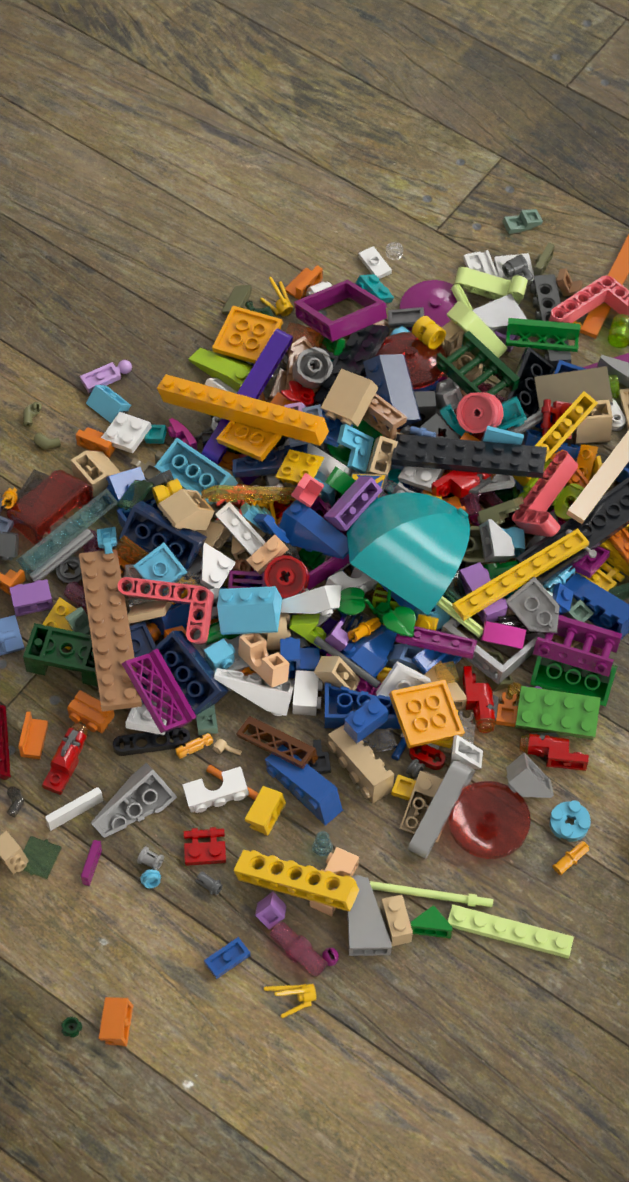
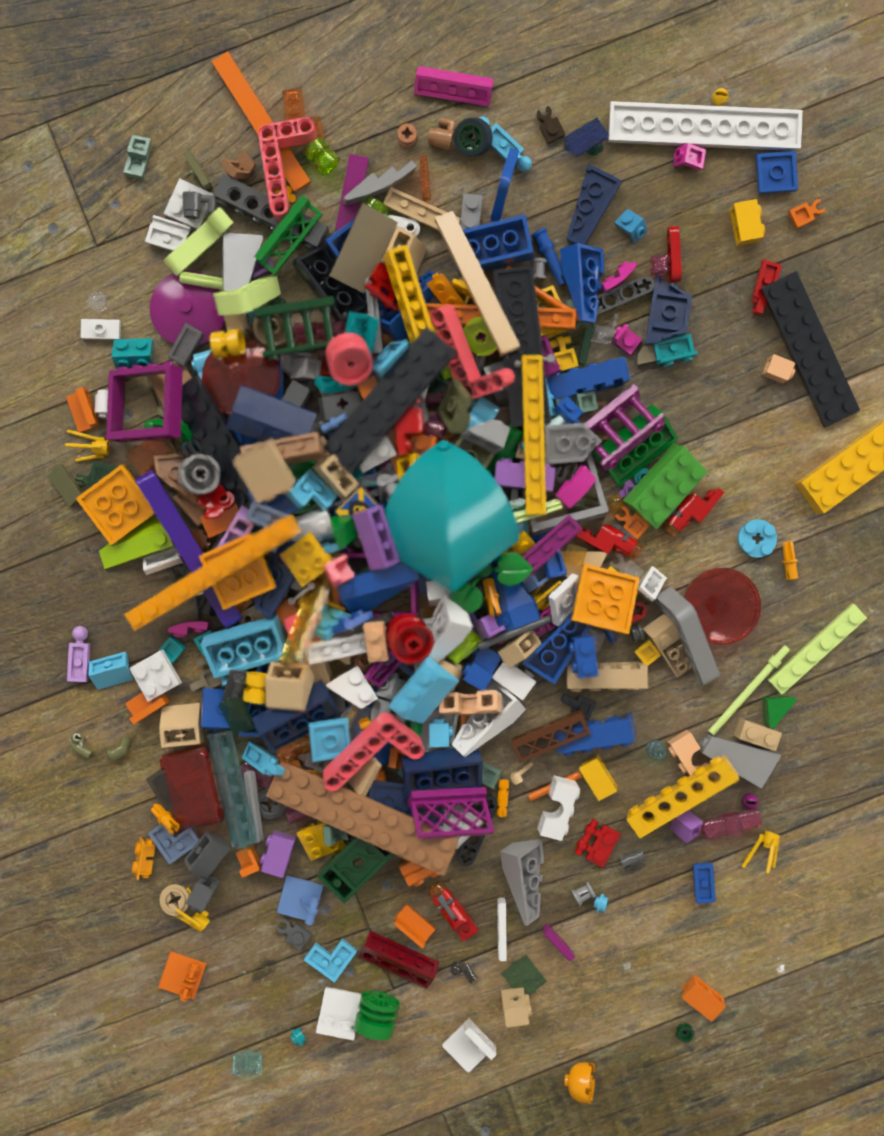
camera: 55 degrees left, 30 degrees up
(528, 778) = (710, 551): light grey slope -> none

